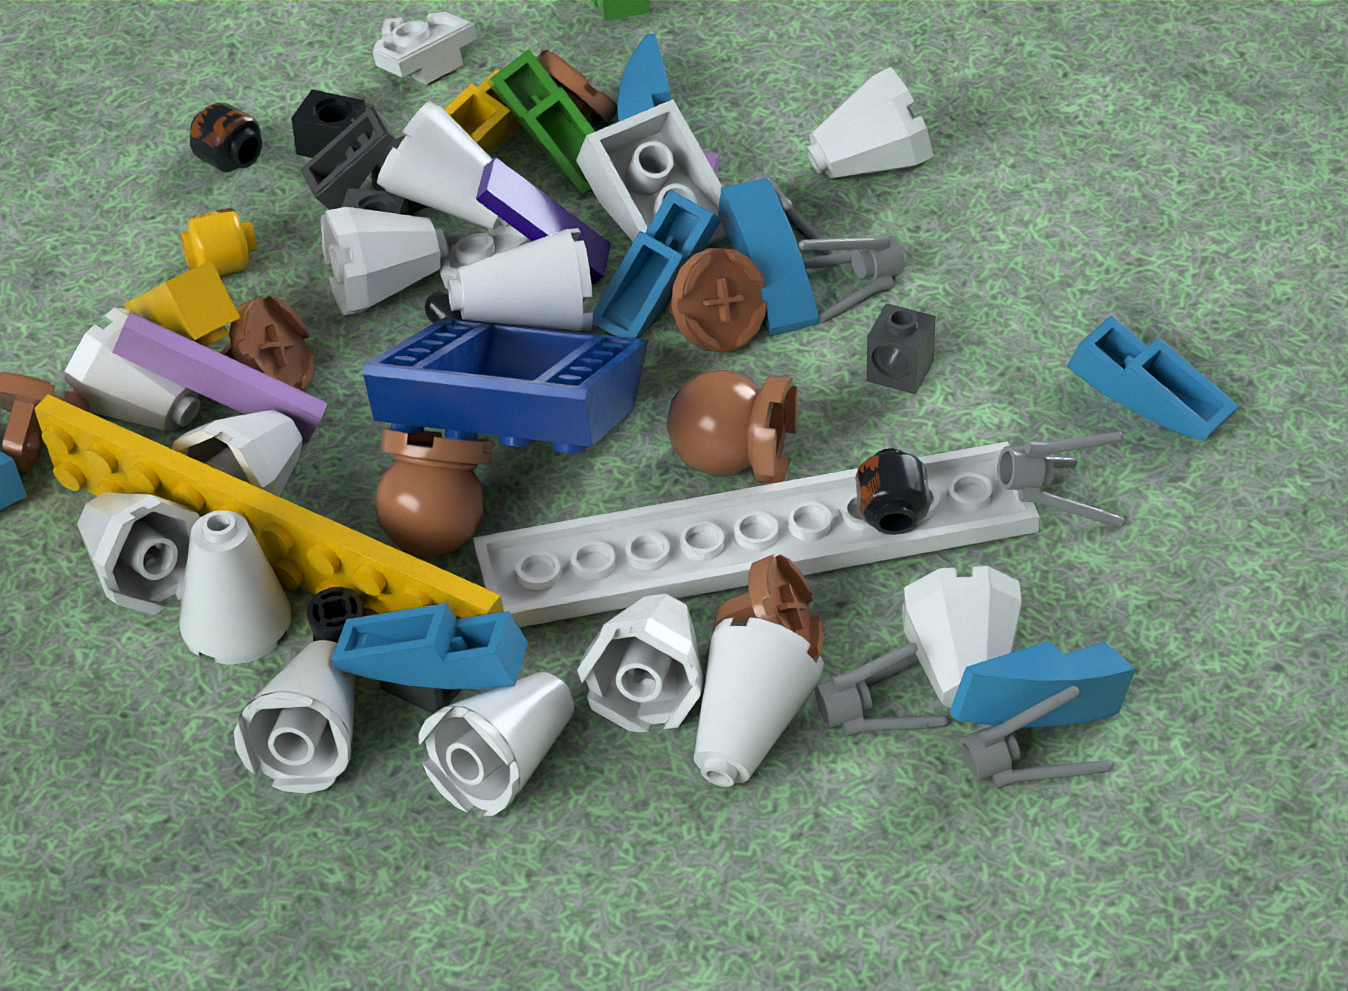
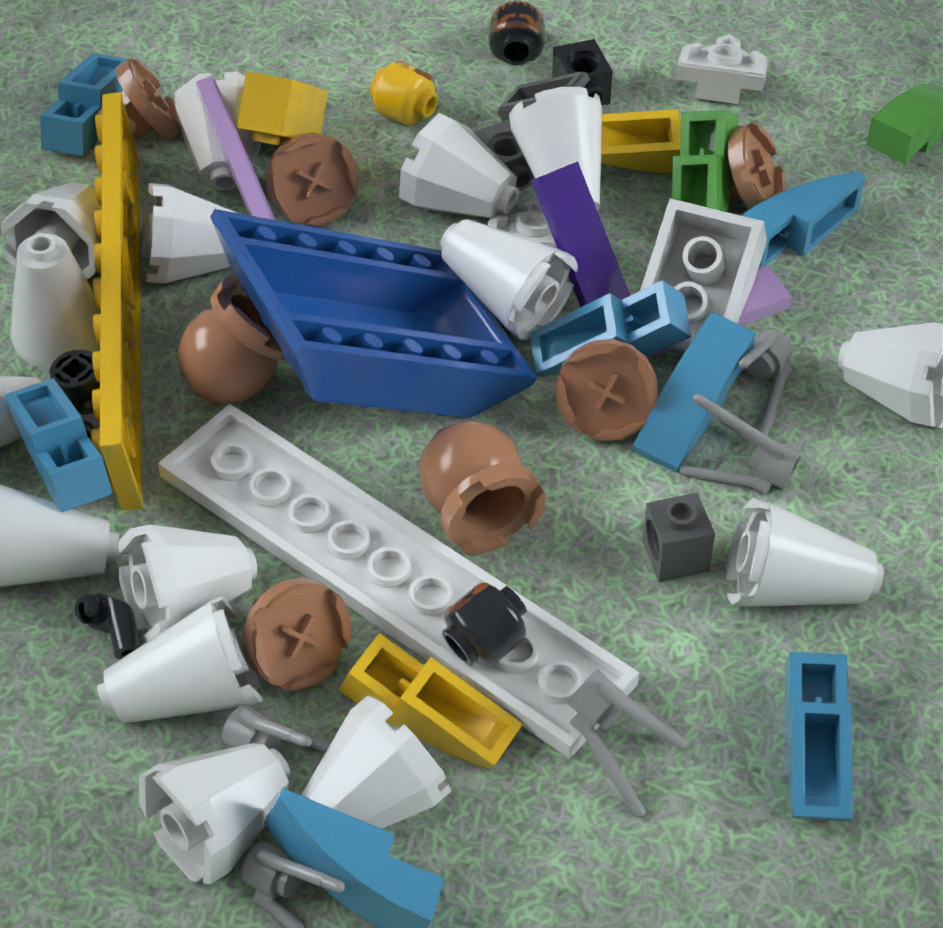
camera: 50 degrees right, 5 degrees up
(632, 732) = (111, 617): none -> black arm
(872, 588) = (432, 703): none -> yellow slope
(909, 753) = (212, 805): none -> white cone
(987, 300) = (797, 562): none -> white cone

